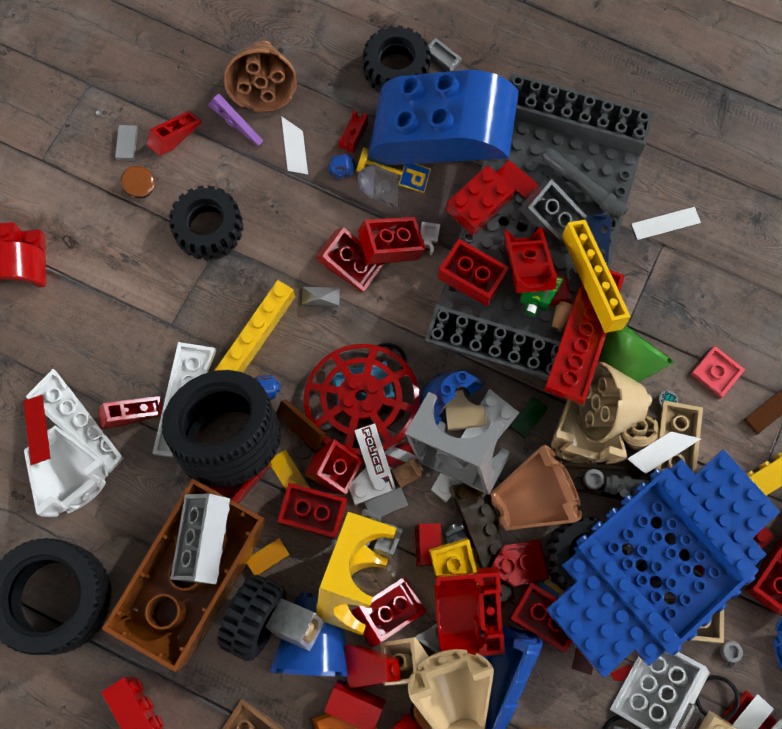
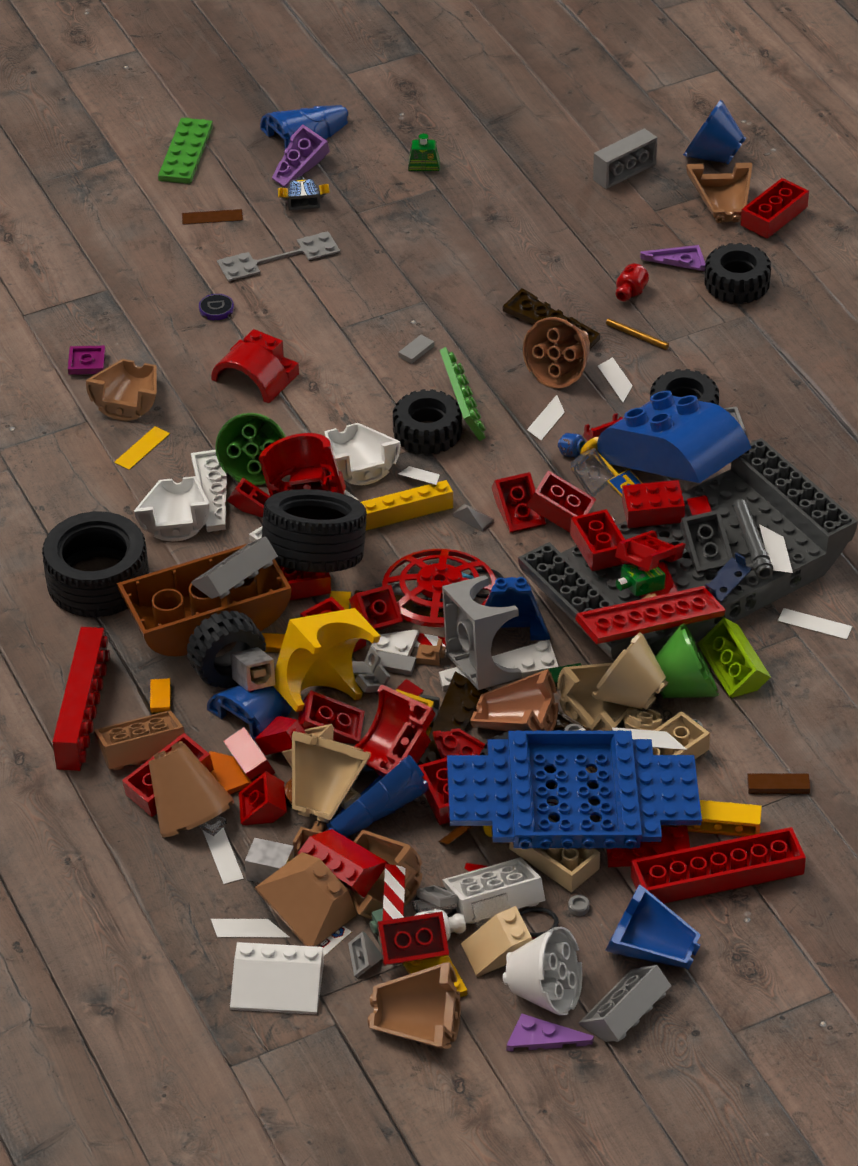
camera: 40 degrees right, 30 degrees down
(36, 429) = (180, 472): red sticker -> none
(84, 361) = (242, 442): none -> bright green cone
(137, 181) = (400, 374): dark orange piece -> none
(155, 353) = (306, 459): none -> red piece
(172, 132) = (468, 358): red slope -> none
(176, 296) = (363, 453): none -> white cone
(198, 38) = (528, 308): none -> dark brown wing
(210, 170) = (463, 393): none -> bright green plate
(219, 690) = (160, 695): none -> light orange tile
(222, 108) = (513, 372): medium lavender wing -> none
(247, 285) = (419, 474): none -> white sticker
(269, 384) = (374, 543): blue head -> none
(295, 9) = (638, 334): none -> pearl gold bar
(300, 424) = (375, 572): reddish brown tile -> none
(314, 67) = (616, 378): none -> white sticker
(374, 454) = (414, 620): white sticker -> none
(464, 414) = (512, 640): tan tile -> none
(595, 276) = (691, 584): yellow brick -> none
(606, 180) = (777, 550): none -> white sticker
(651, 309) = (733, 659): none -> lime slope
(717, 372) = (755, 735): coral tile -> none

